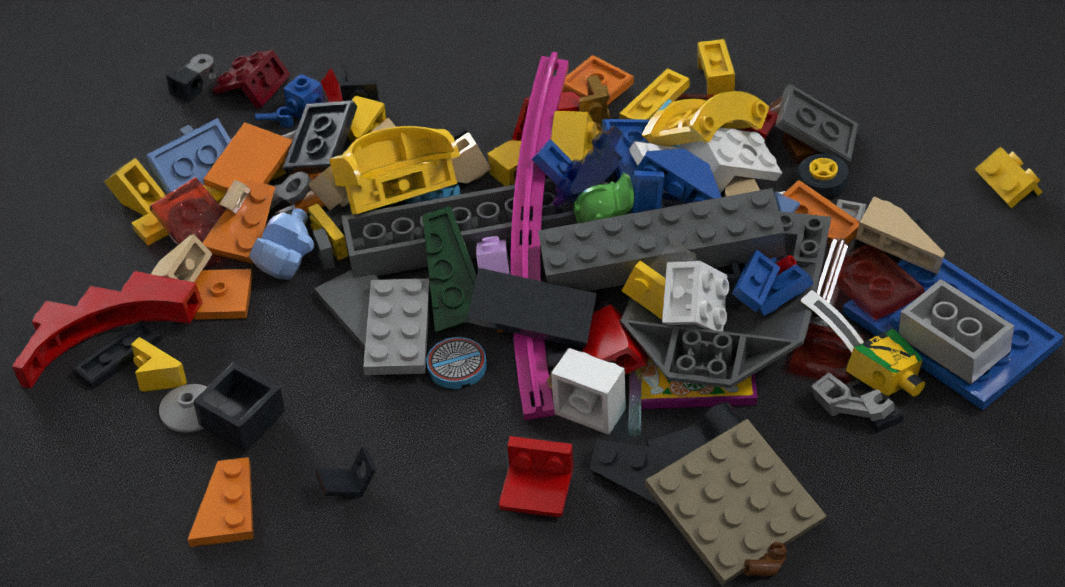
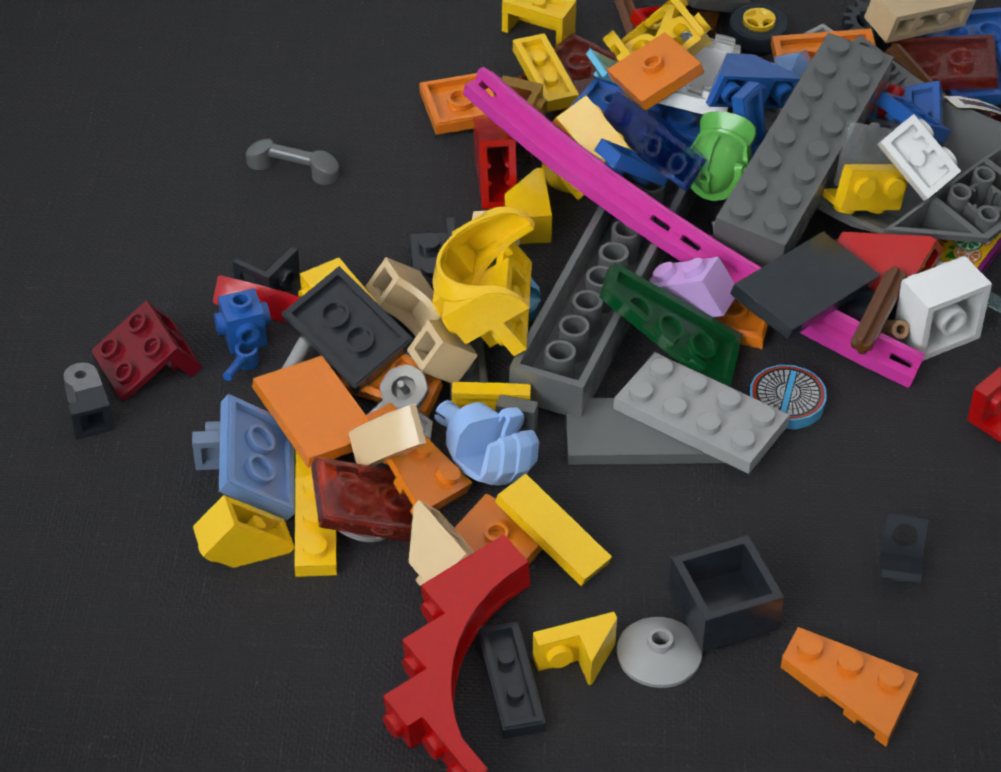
camera: 60 degrees left, 0 degrees up
(239, 309) = (553, 529): none -> yellow tile
(477, 56) = (323, 164): none -> dark grey bar
(541, 356) = (878, 310): none -> reddish brown axle
(644, 130) = (655, 71): none -> orange plate

